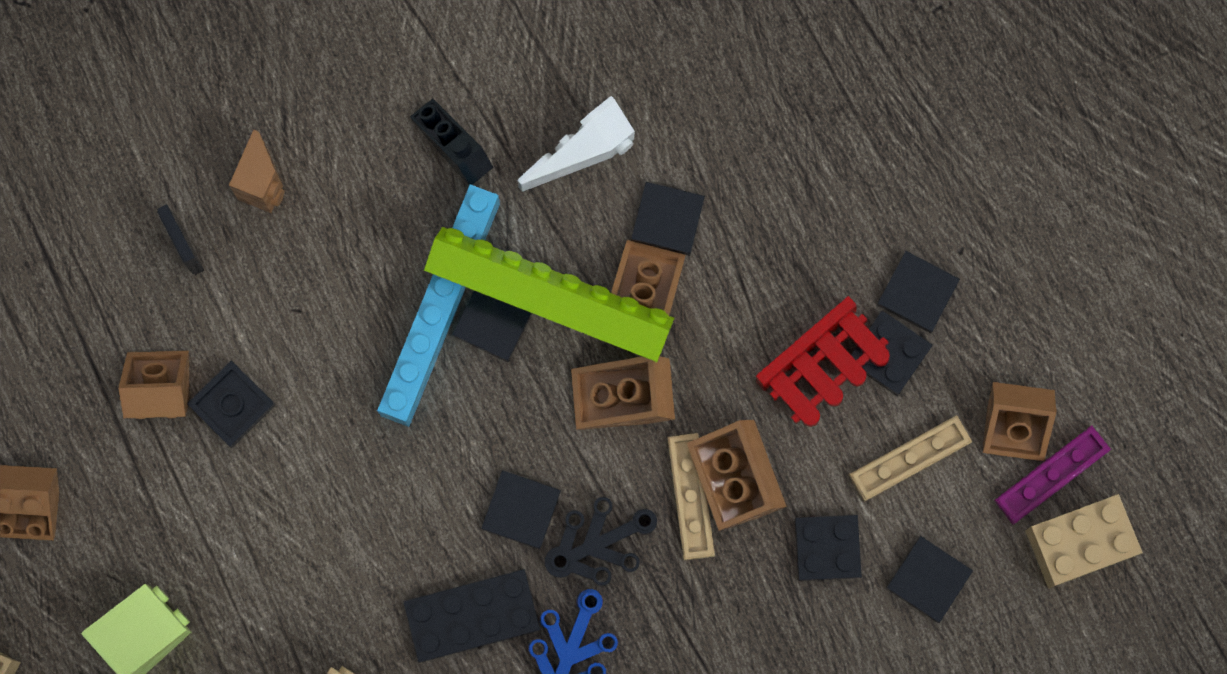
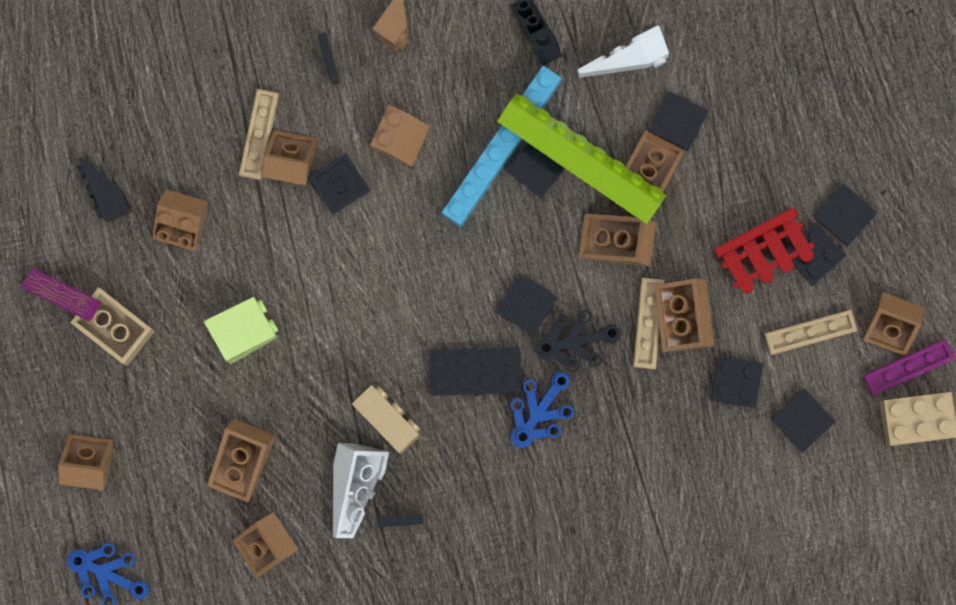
camera: 20 degrees right, 5 degrees up
(107, 362) = (258, 134): none -> tan tile
(299, 321) = (399, 136): none -> medium nougat slope

